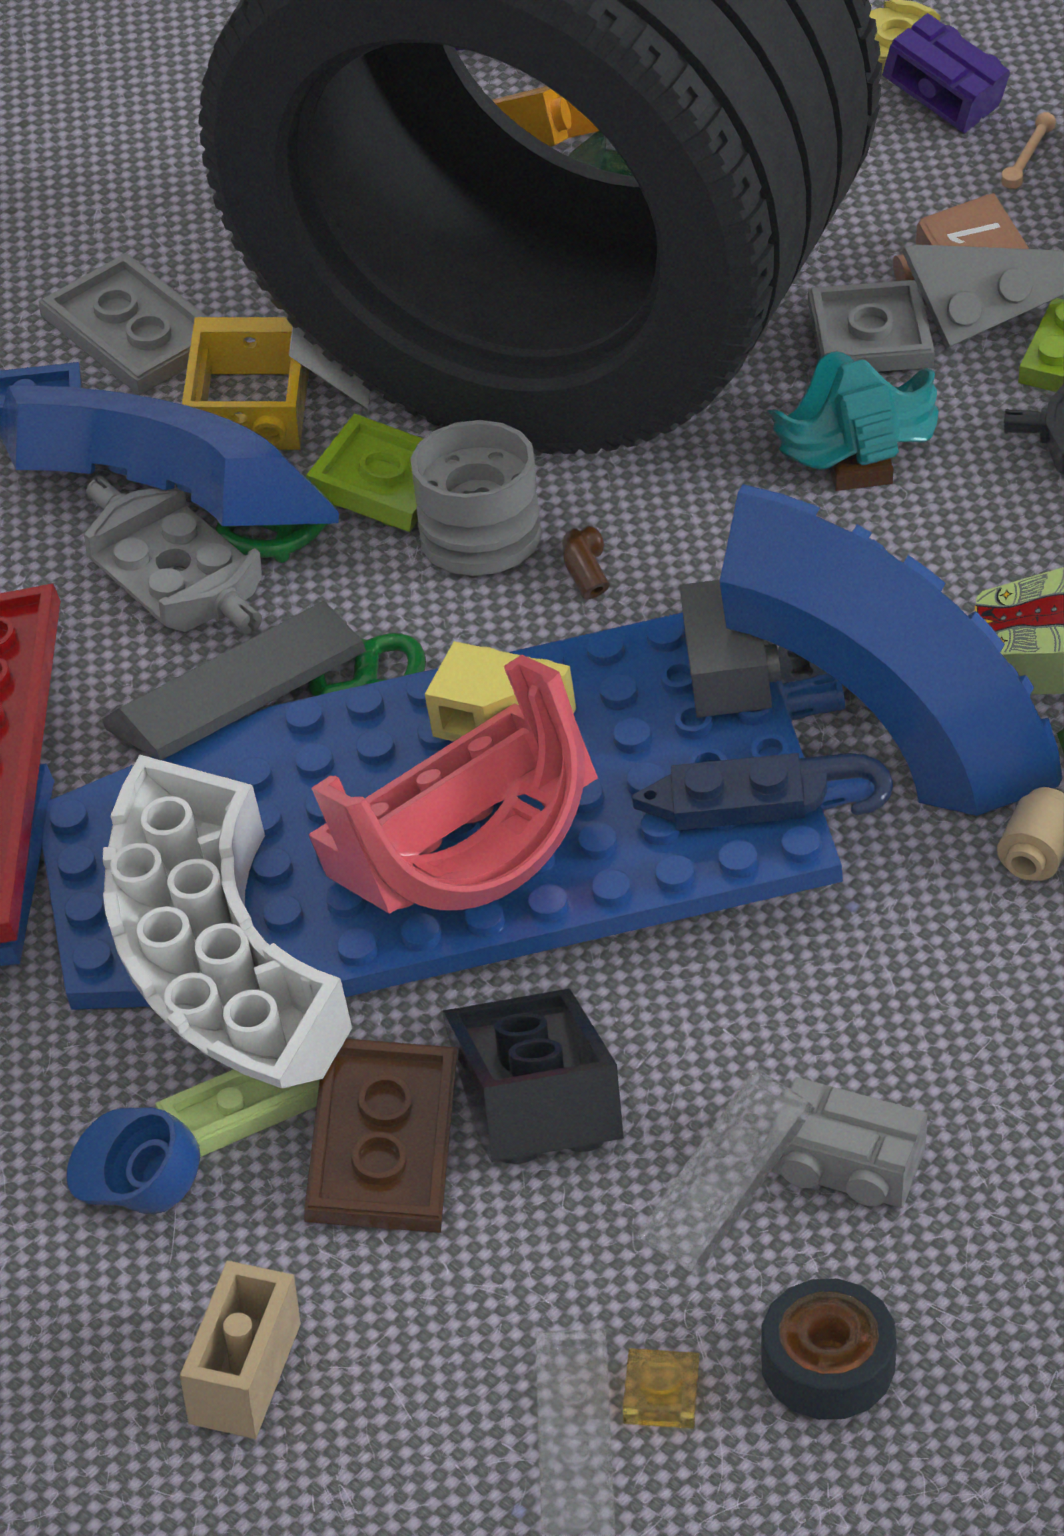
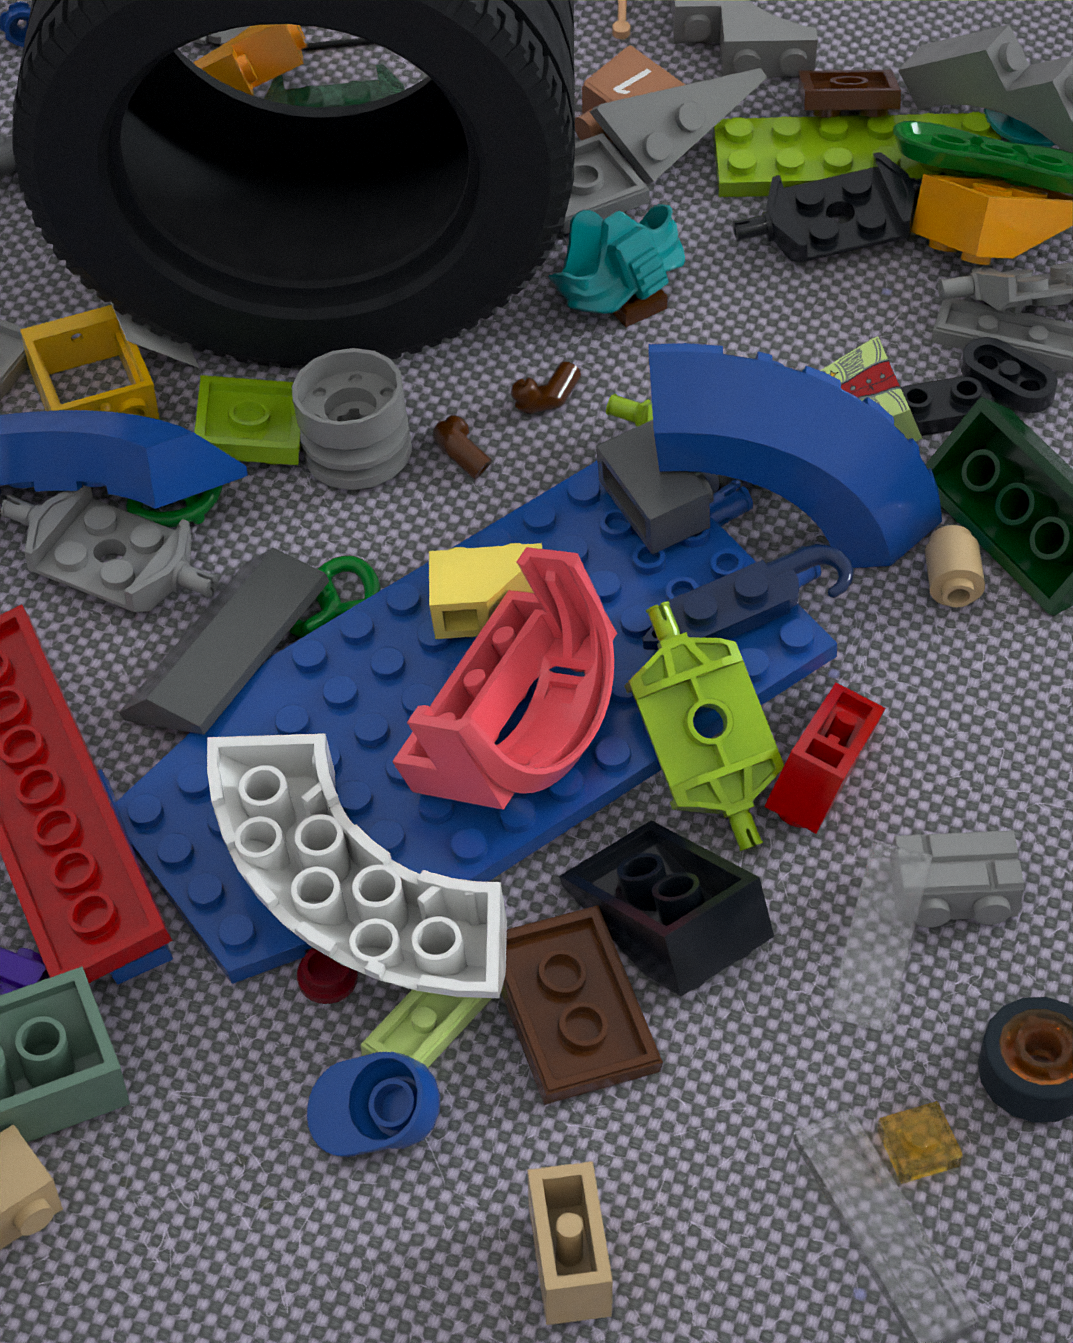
camera: 25 degrees left, 5 degrees up
(152, 1035) = (325, 979): none -> dark red plate
(662, 954) = (702, 771): none -> lime plate
(694, 536) = (553, 395): none -> reddish brown arm
(778, 979) = (824, 758): none -> red slope

